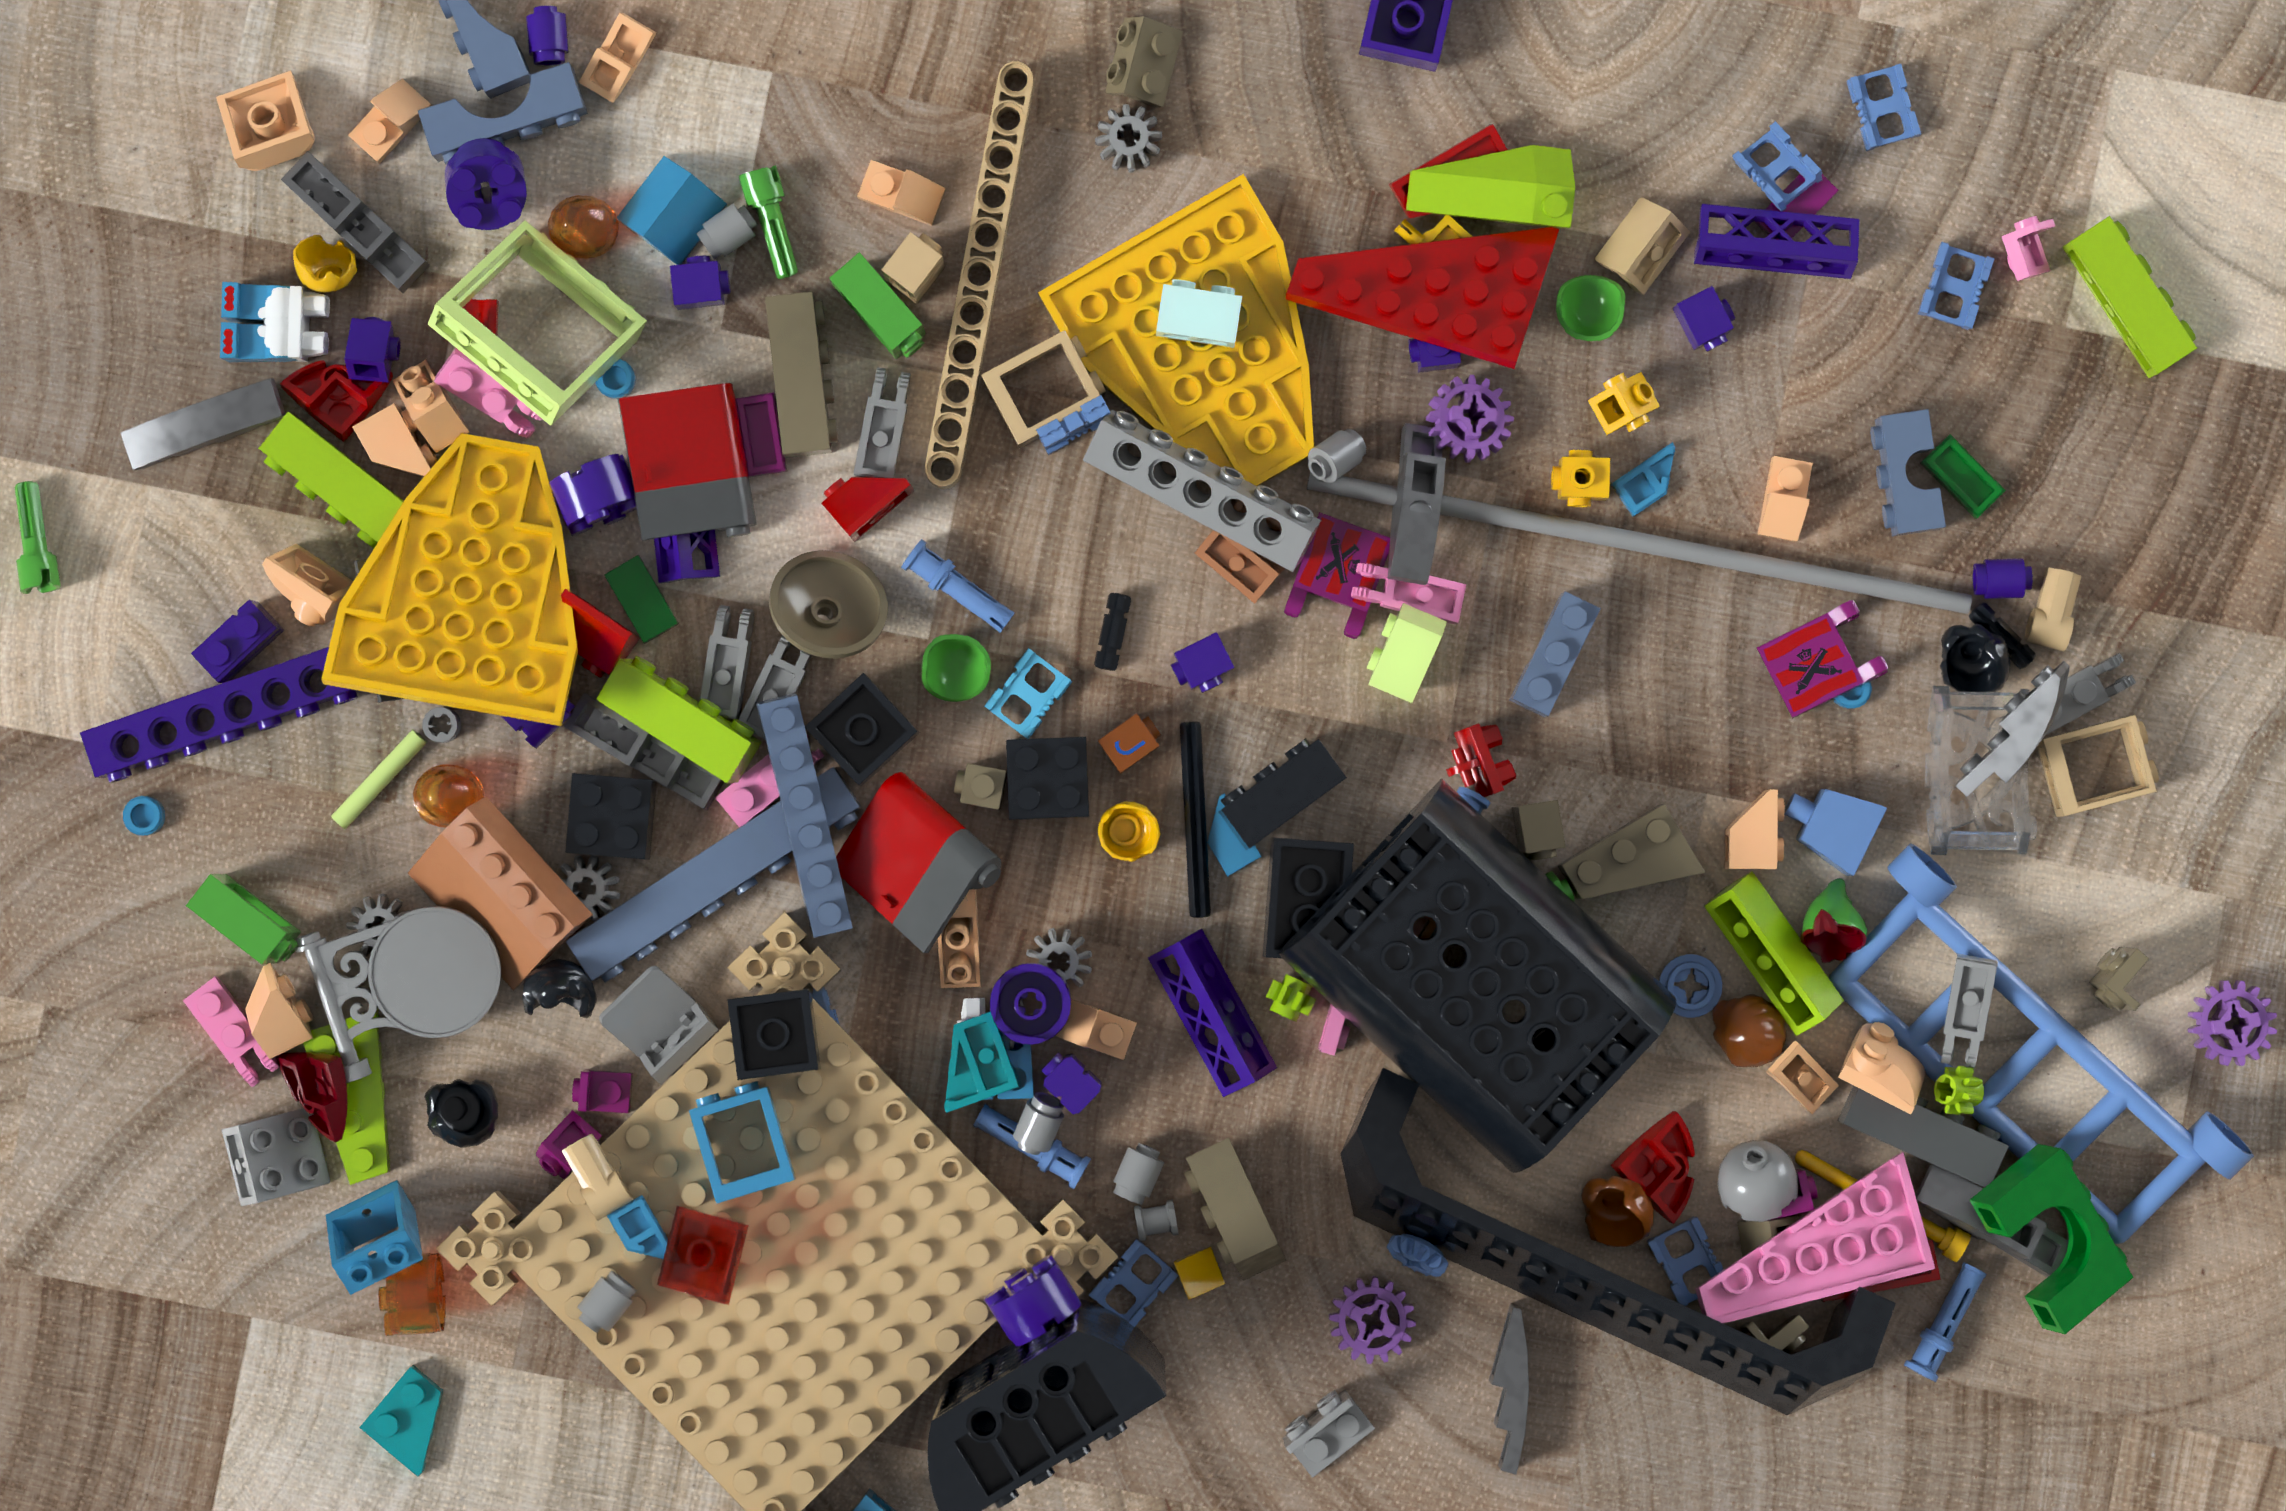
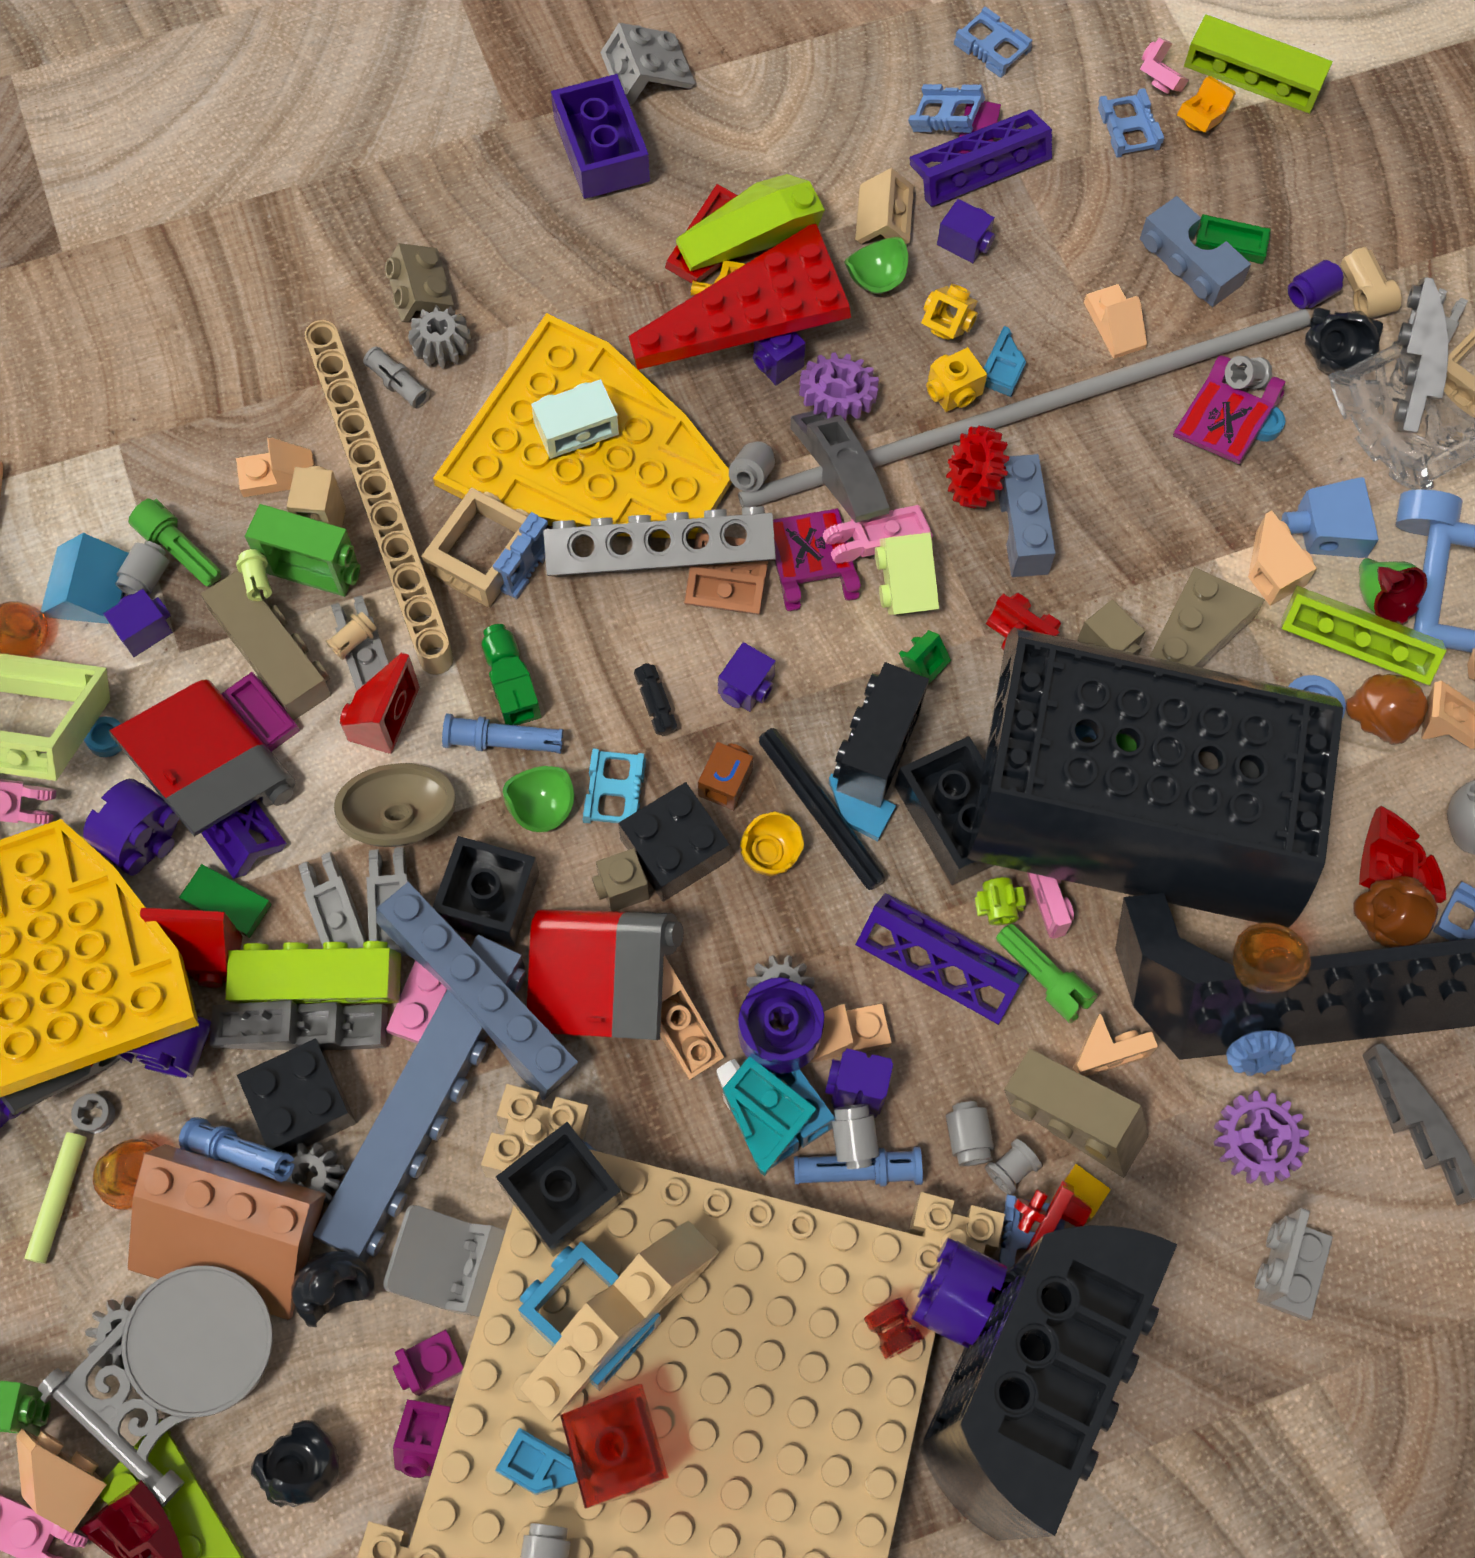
camera: 30 degrees left, 20 degrees down
(532, 823) = (225, 1146): none -> medium blue pin
(601, 1185) = (472, 1441): tan piece -> none
(763, 1164) = (617, 1316): none -> tan arch
(821, 310) = (252, 566): none -> yellowish green pin
(876, 418) = (351, 635): none -> tan pin
(968, 1304) = (898, 1338): none -> clear red wheel
(996, 534) = (509, 676): none -> green piece
(1065, 156) = (396, 377): none -> light grey pin
(1139, 1295) = (1063, 1206): none -> red hips
(1286, 1174) = (1101, 1054): none -> light nougat slope
(1293, 1098) = (1064, 990): none -> bright green piece
(1374, 738) = (927, 656): none -> green tile
(1445, 1204) = (1270, 958): none -> clear orange hat
(1537, 585) = (977, 467): none -> red gear
(1859, 634) = (1252, 369): none -> light grey bush
(2039, 317) = (1208, 106): none -> light orange bracket

